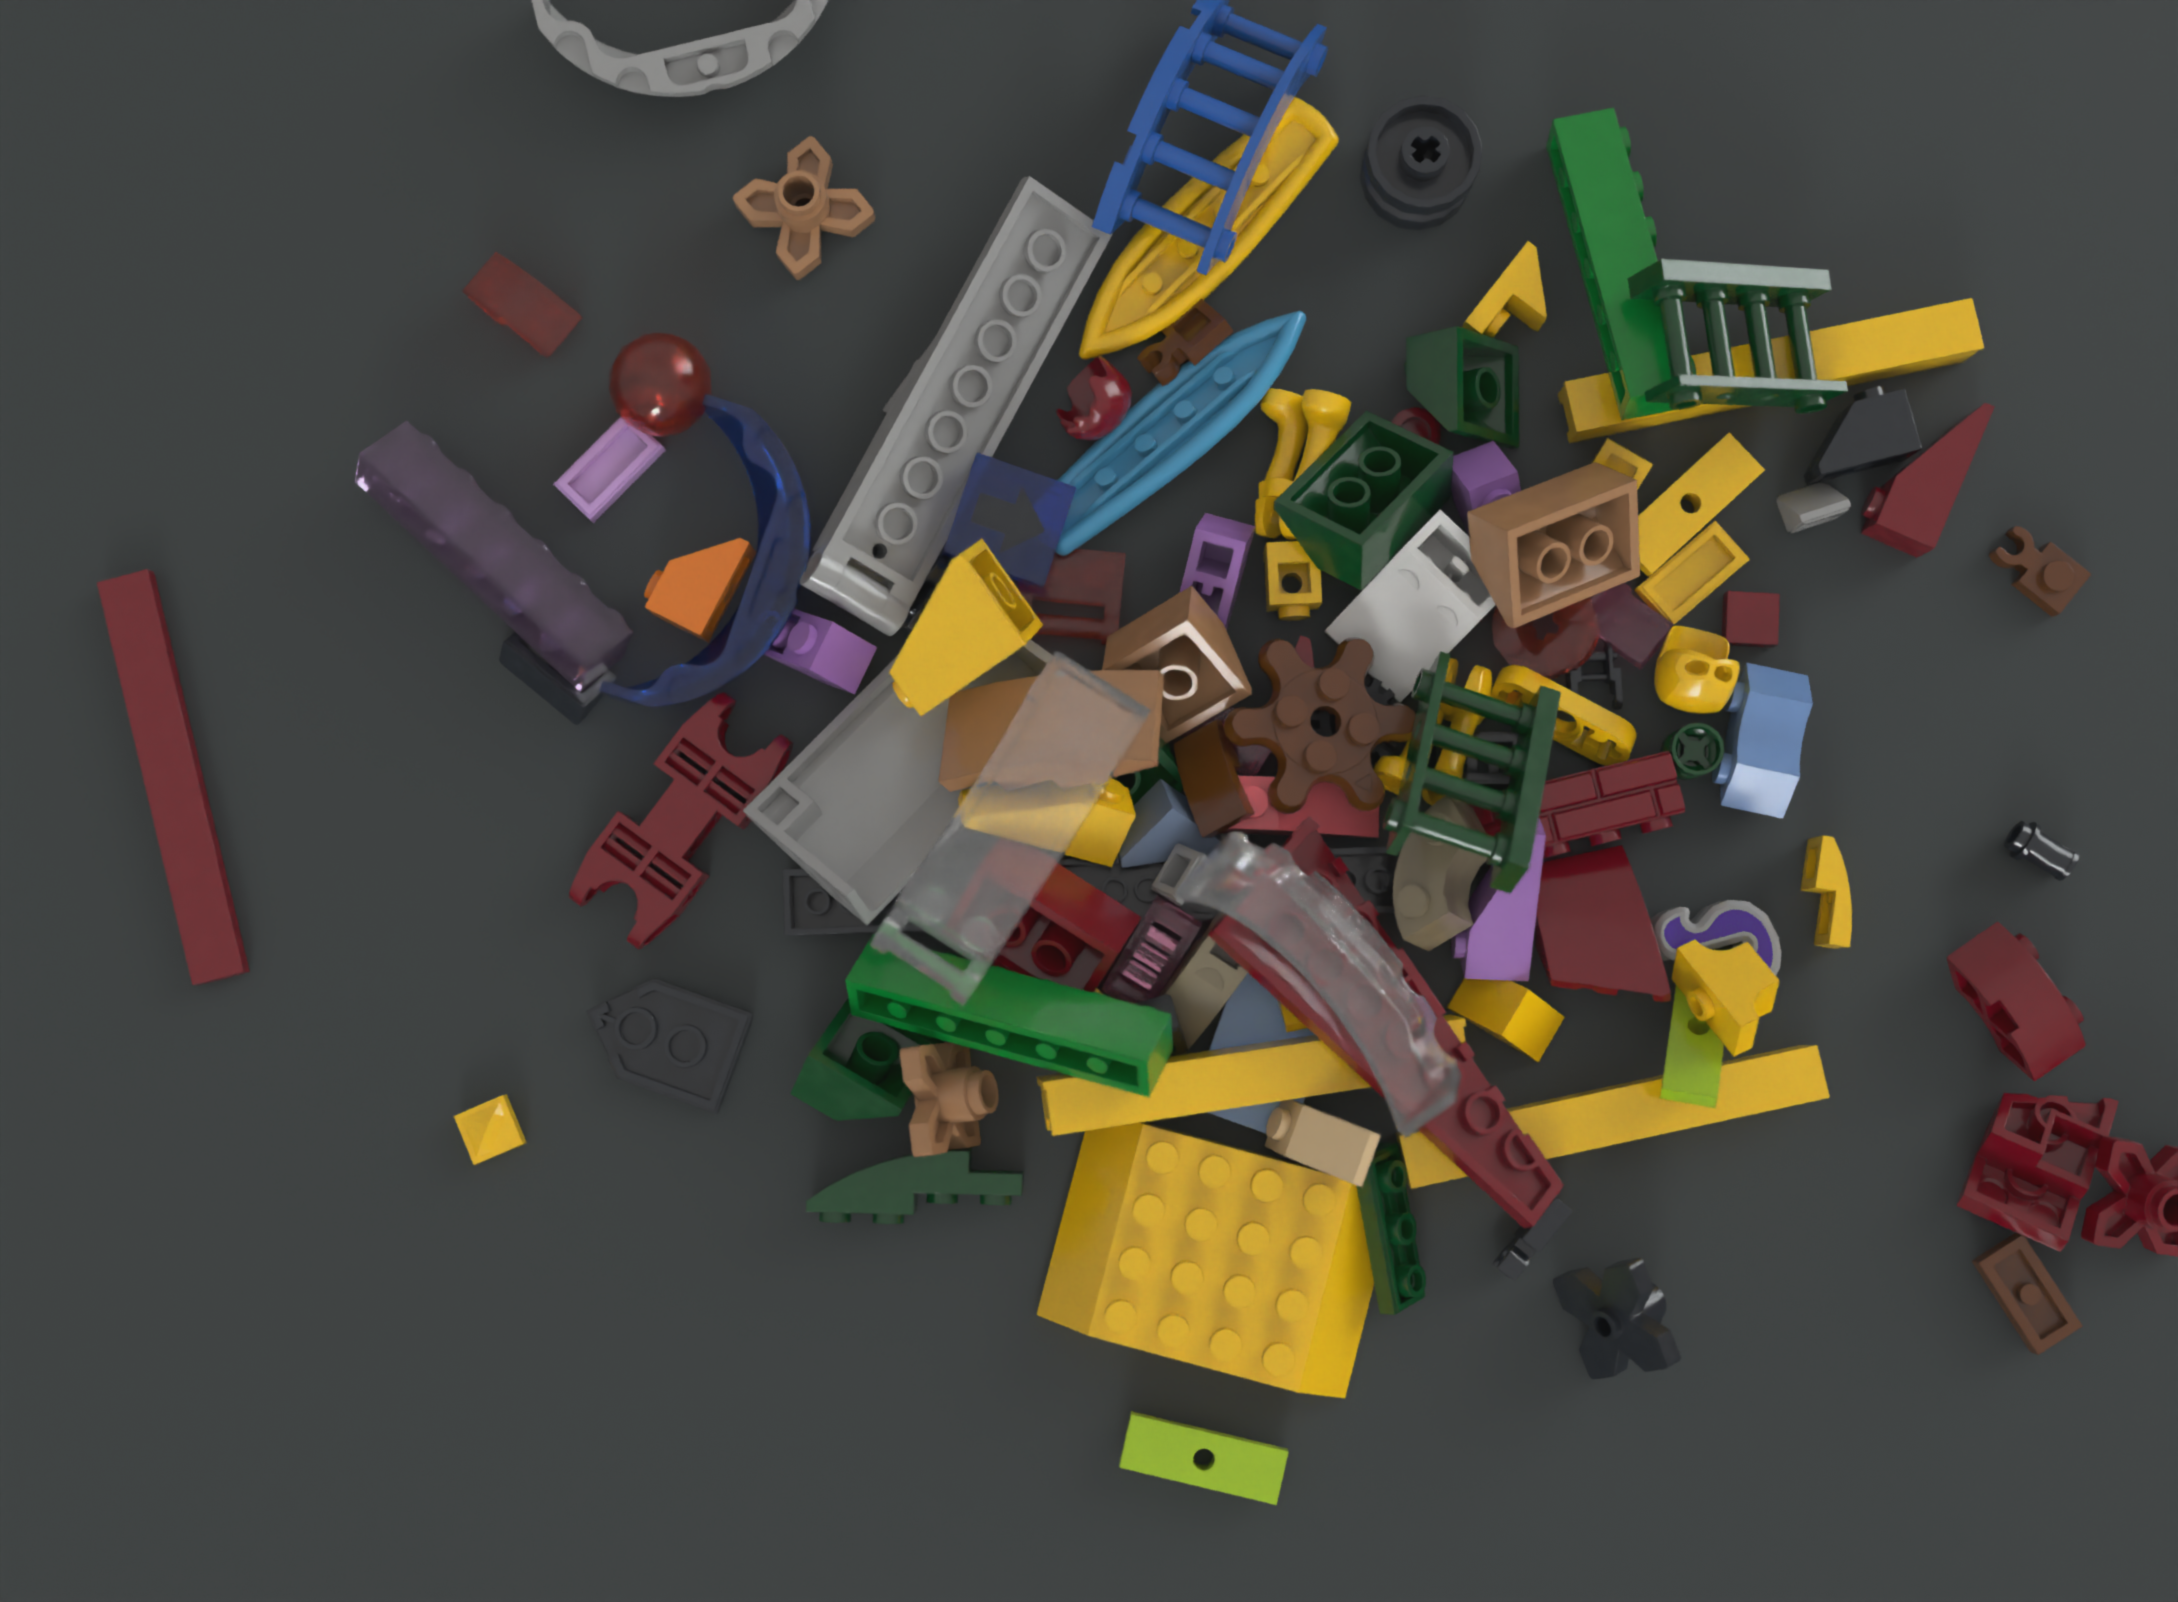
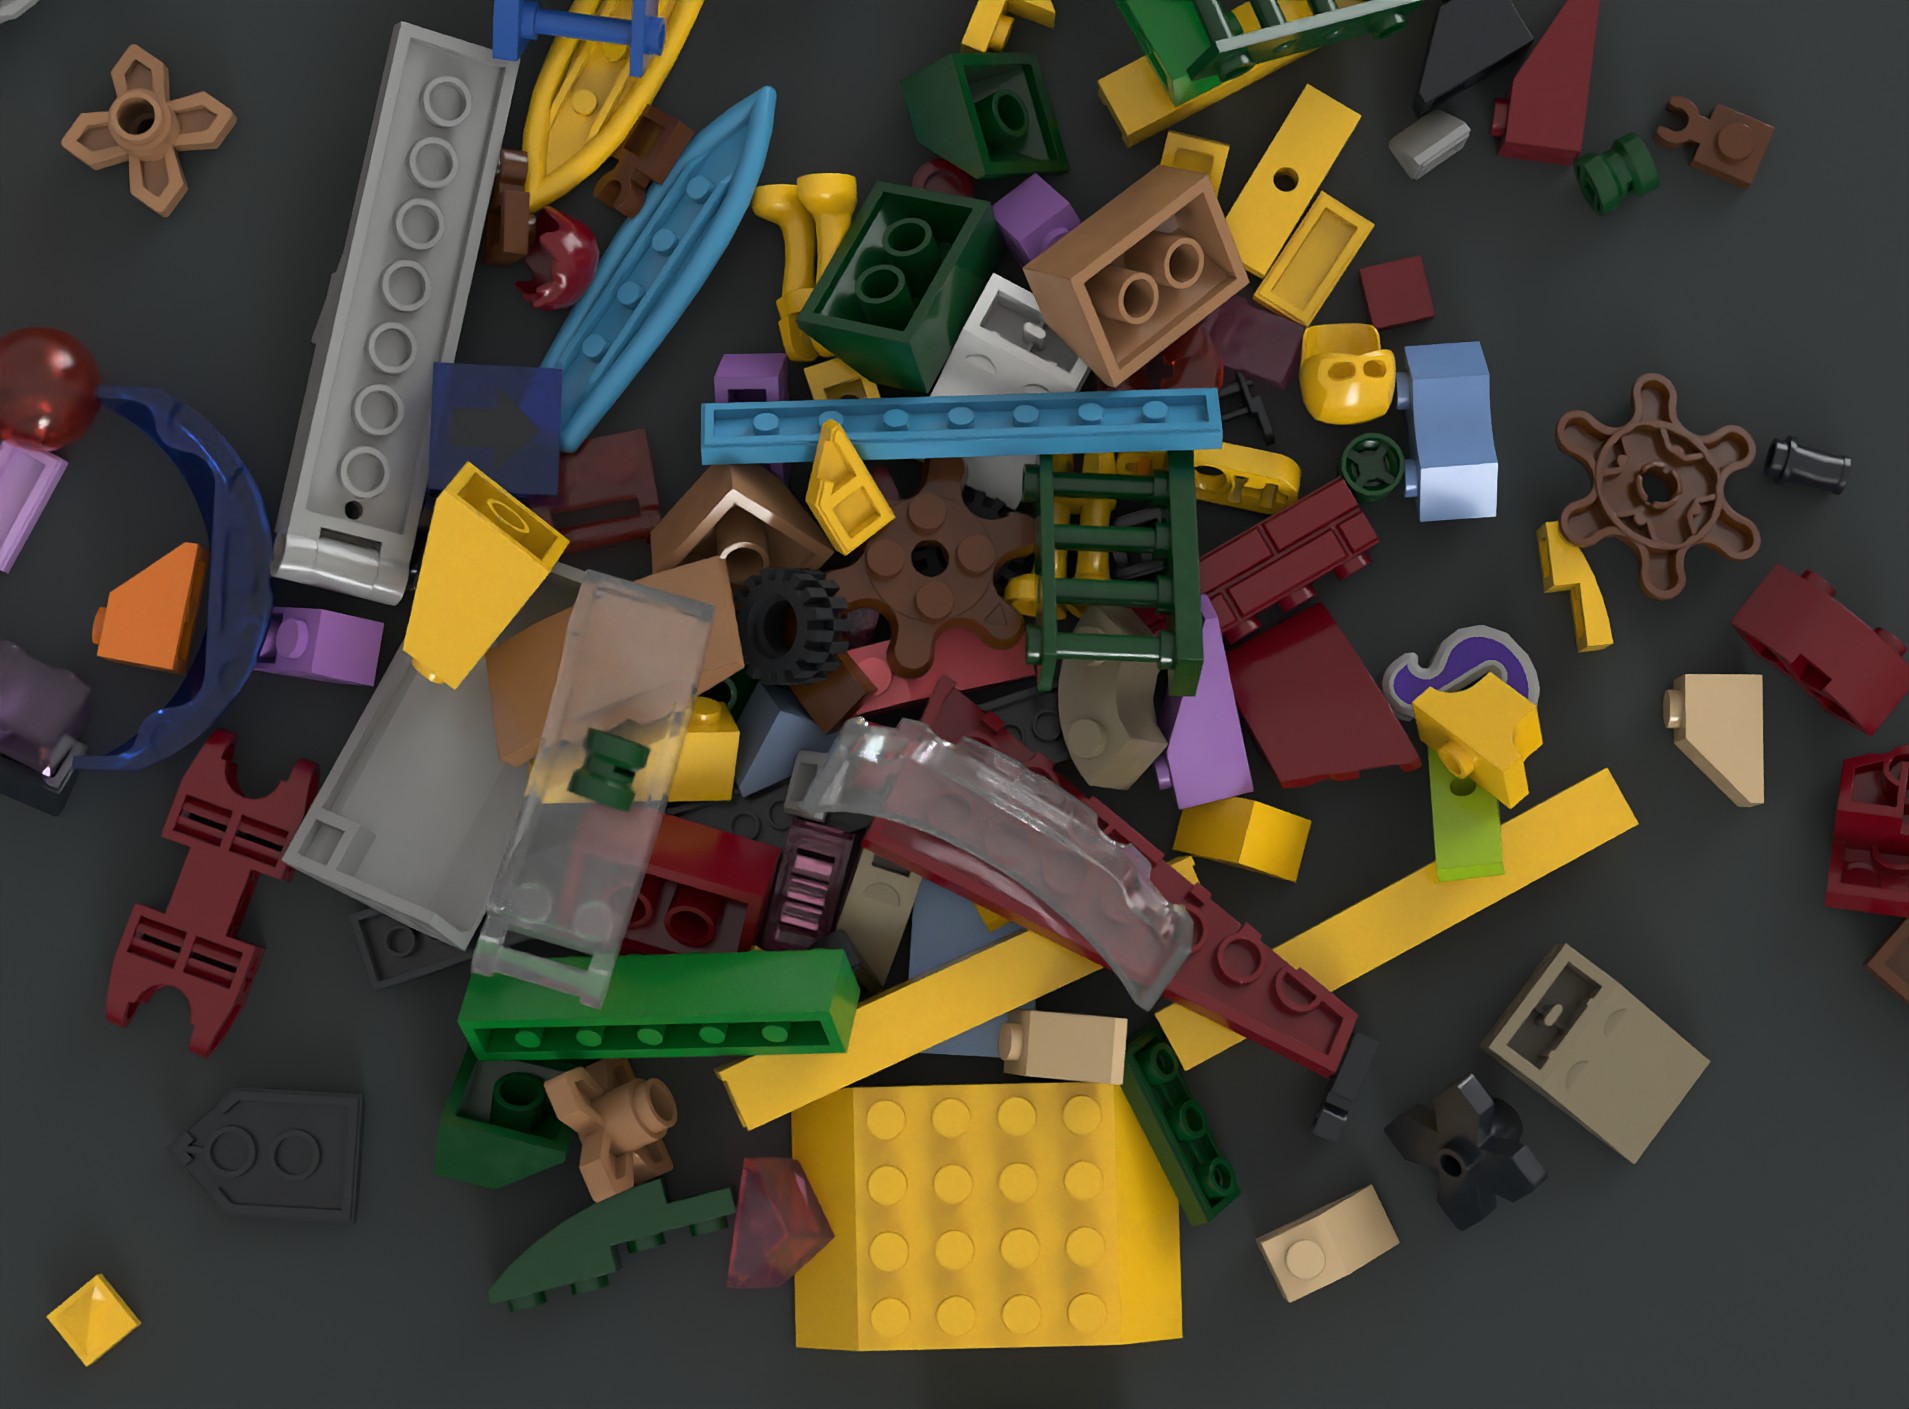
camera: 15 degrees left, 0 degrees up
(1026, 816) = (609, 769): none -> dark green wheel
(1050, 1213) = (775, 1224): none -> clear pink slope
(1066, 360) = (508, 224): none -> reddish brown plate
(1223, 748) = (817, 626): none -> black tyre
(1274, 649) = (844, 492): none -> yellow tile
(1382, 623) = (965, 425): none -> dark azure tile
(1481, 1358) = (1327, 1243): none -> tan slope
(1740, 1266) = (1595, 1051): none -> dark tan slope
(1914, 1042) = (1721, 730): none -> tan slope
(1947, 826) = (1686, 463): none -> reddish brown plate
(1954, 574) = (1616, 173): none -> dark green wheel

